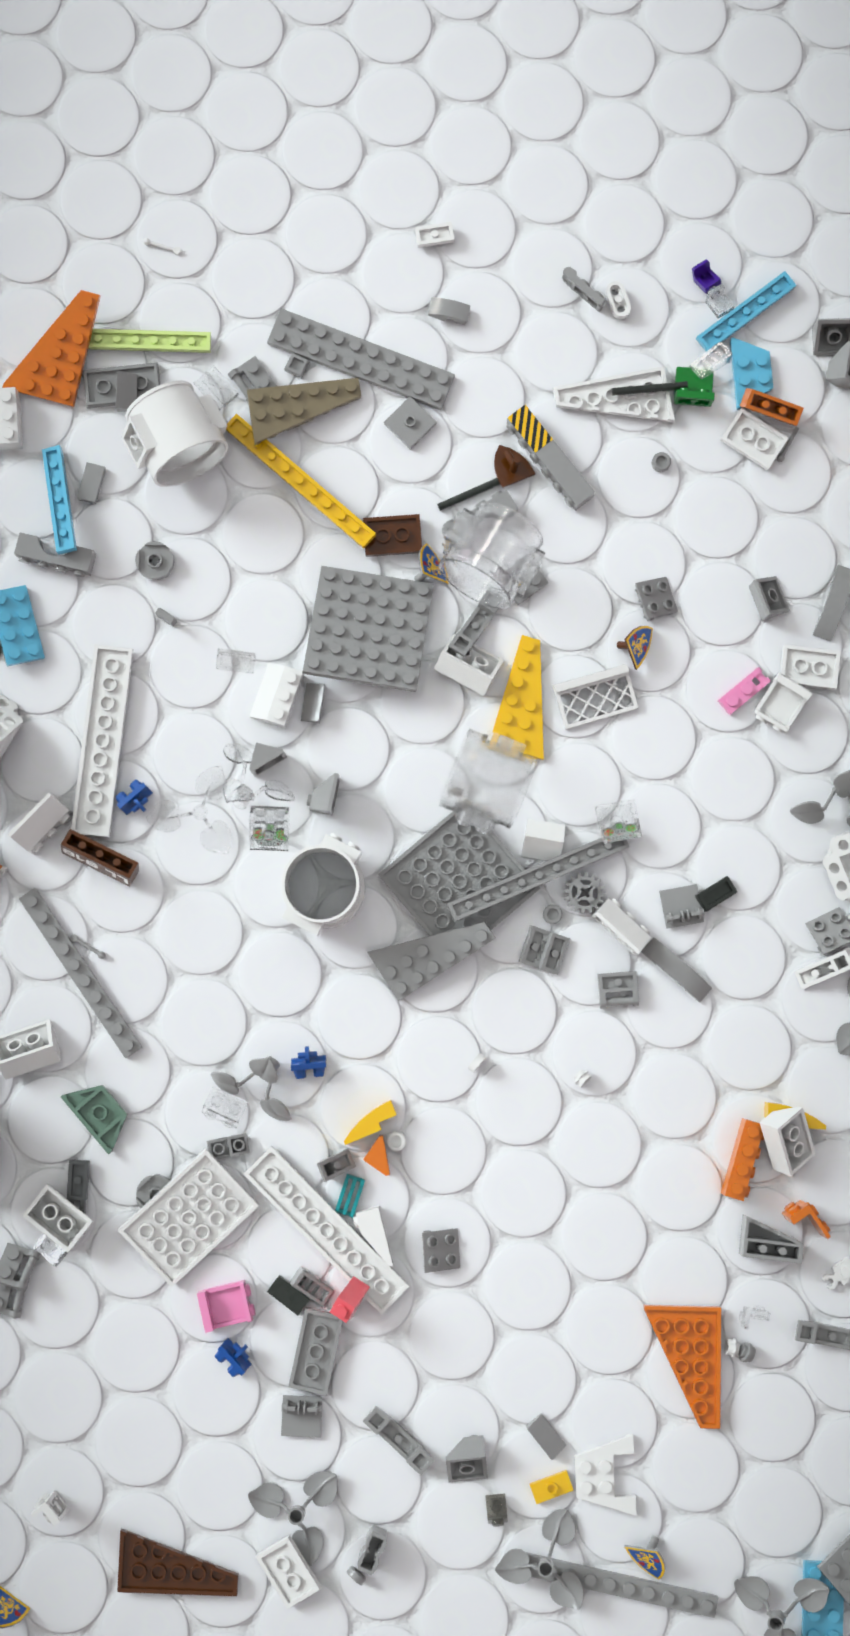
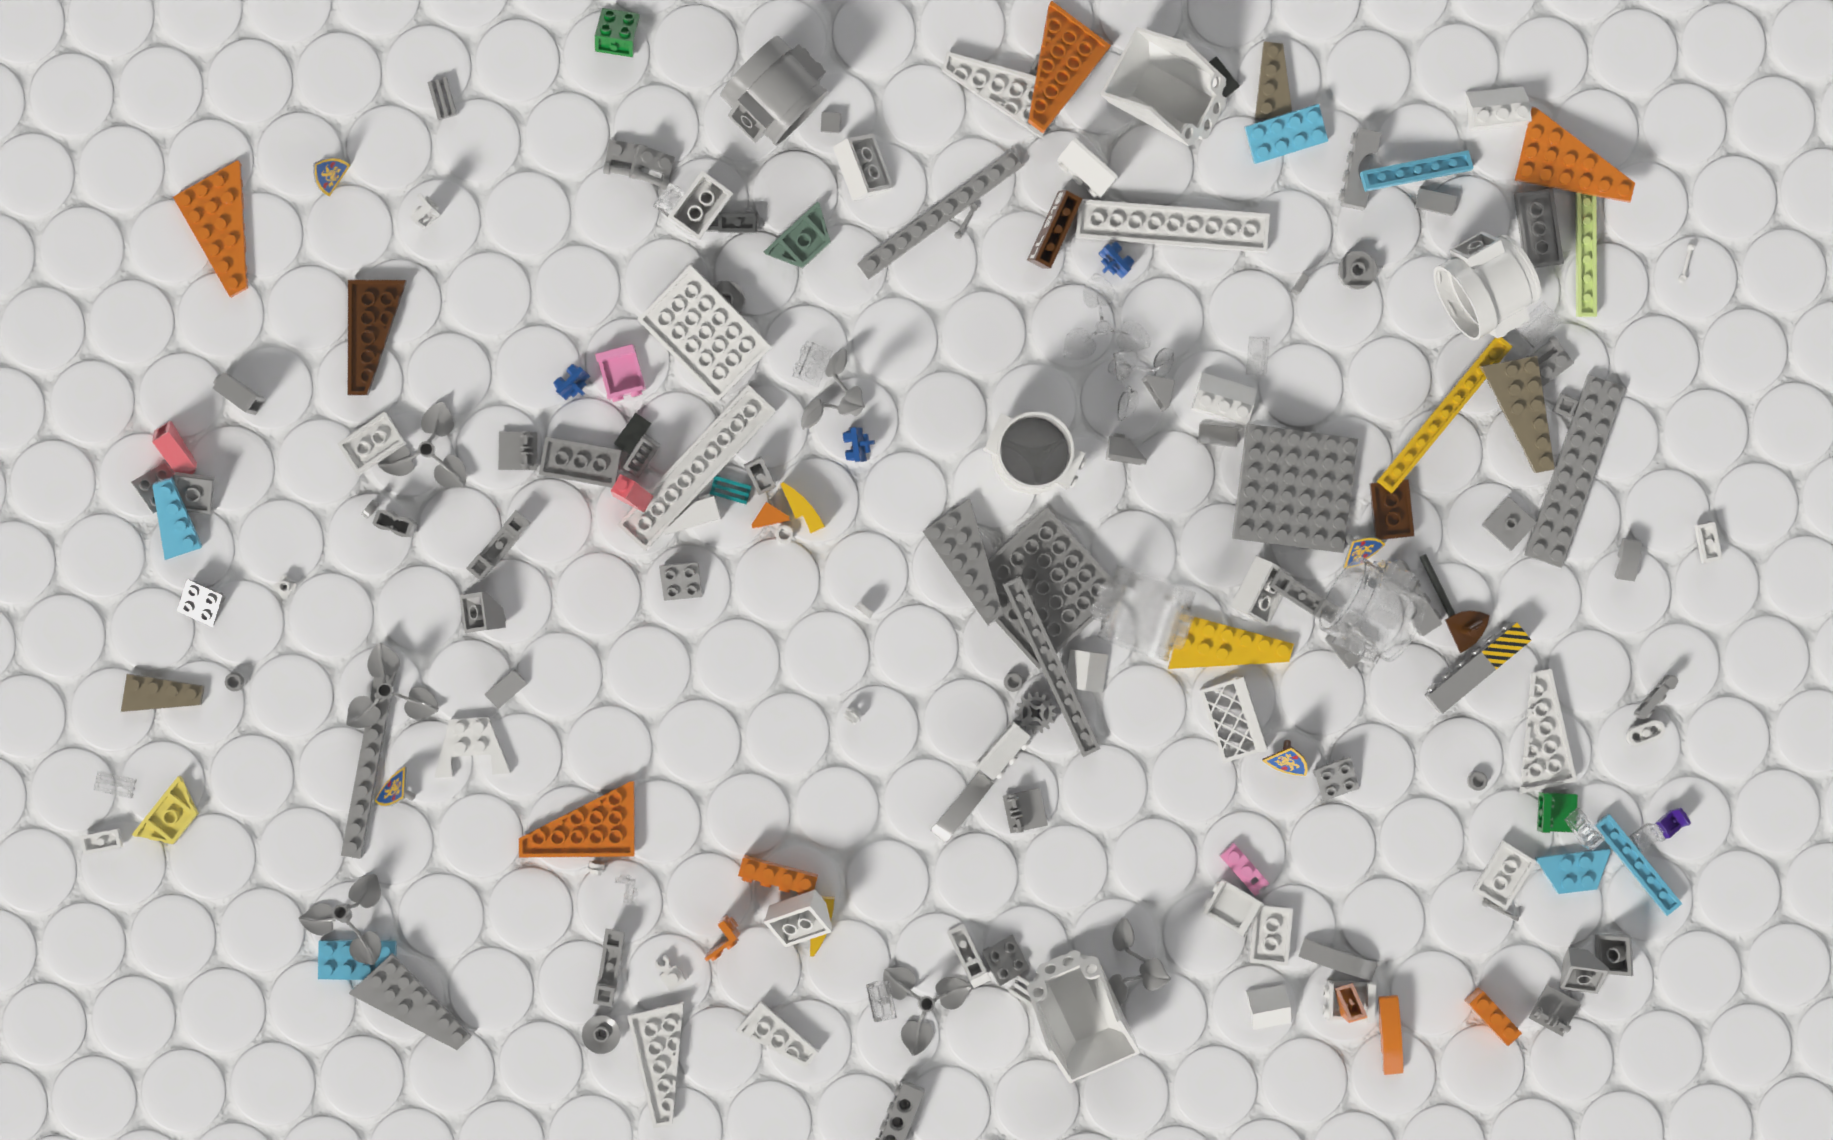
camera: 85 degrees right, 5 degrees up
(125, 390) = (1531, 233): light grey slope -> none
(228, 1146) = (774, 369): light grey slope -> none
(269, 828) = (1090, 396): clear slope -> none
(496, 1509) = (435, 642): clear smoke bracket -> none
(544, 950) = (977, 674): light grey slope -> none
(551, 1486) = (458, 695): yellow plate -> none
(618, 821) = (1108, 745): clear slope -> none
(618, 983) = (947, 748): light grey plate -> none
(649, 388) = (1553, 766): pearl dark grey bar -> none
(716, 893) = (1038, 844): pearl dark grey tile -> none
(746, 1352) = (591, 882): light grey plate -> none
(767, 1243) = (697, 901): light grey wedge -> none
(768, 597) = (1340, 893): light grey slope -> none
(771, 406) = (1537, 891): orange brick -> none

